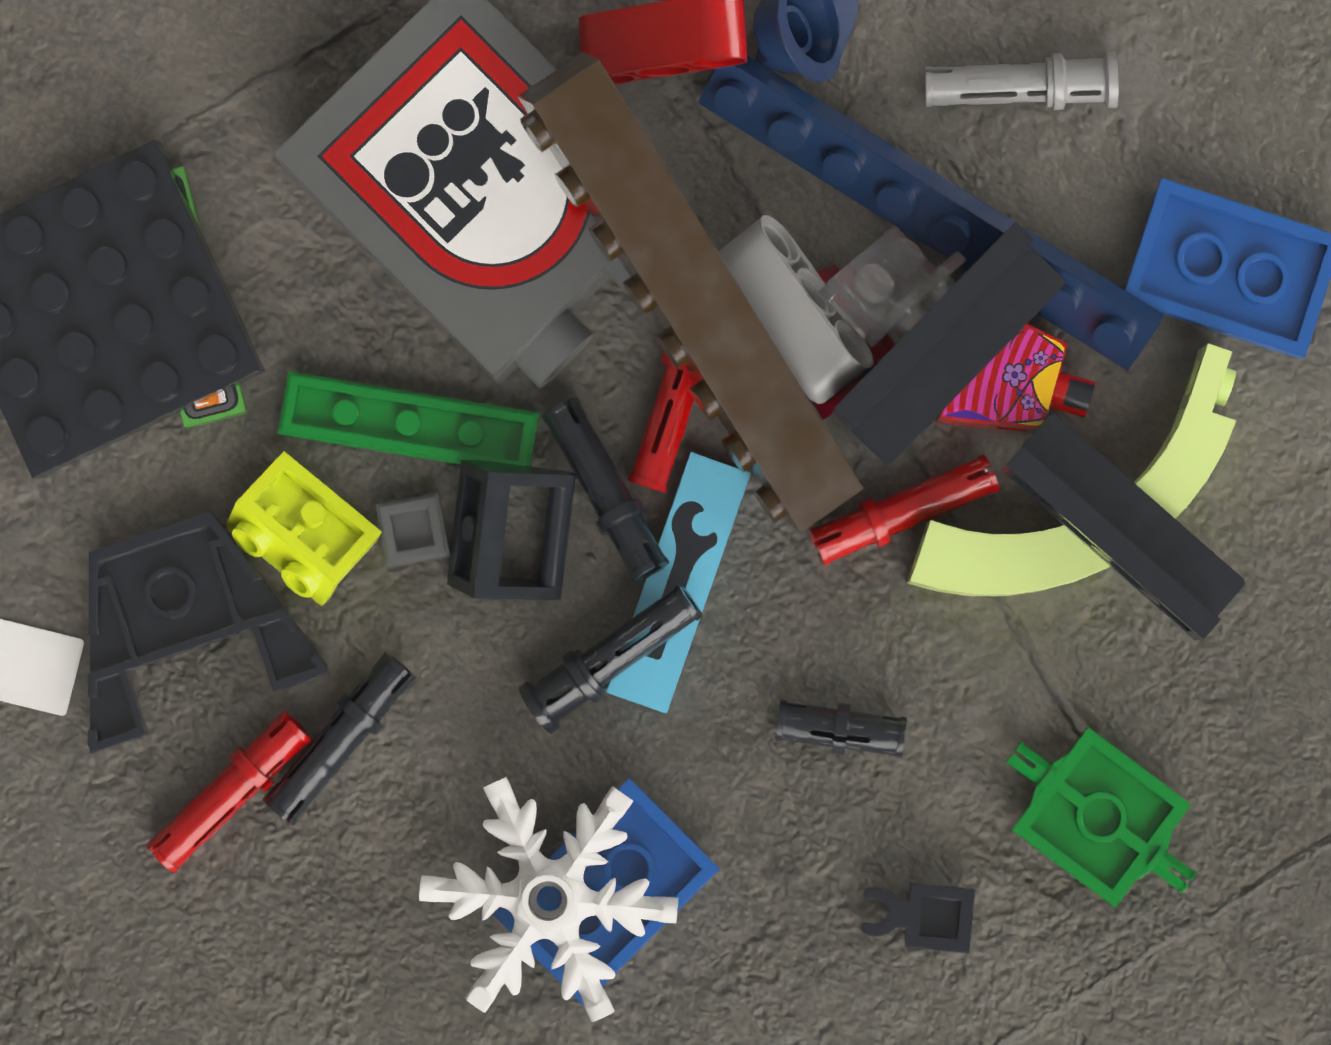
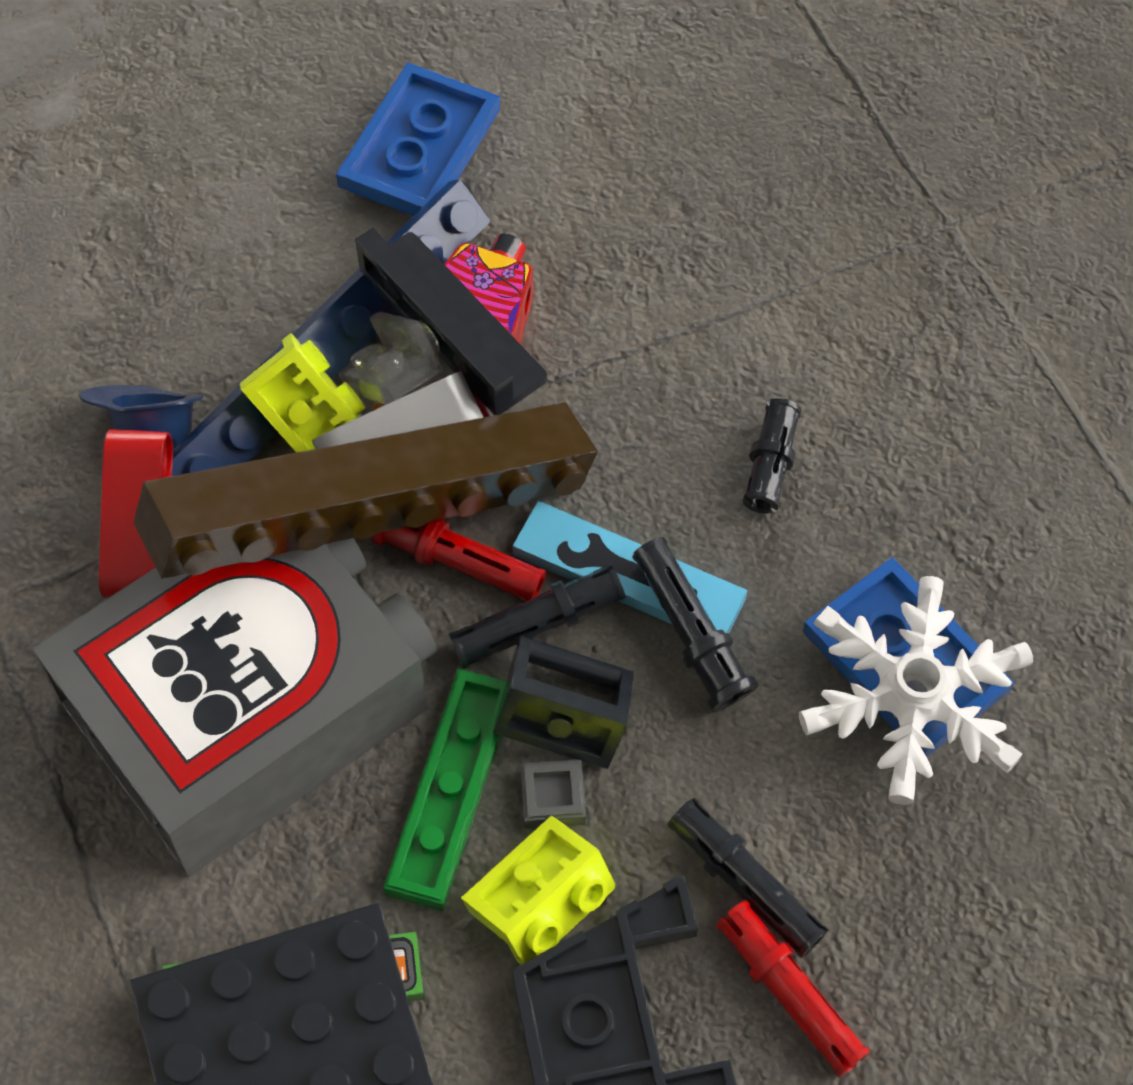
camera: 85 degrees left, 25 degrees down
(831, 197) = (299, 395): none -> neon yellow bracket
(903, 510) = (592, 405): red pin -> none
(932, 916) = (940, 407): black plate -> none
(1036, 561) = (619, 233): yellowish green arch -> none
(1052, 82) = (240, 244): light grey pin -> none
(1100, 817) = (861, 274): green plate -> none
(1124, 526) = (625, 213): black panel -> none

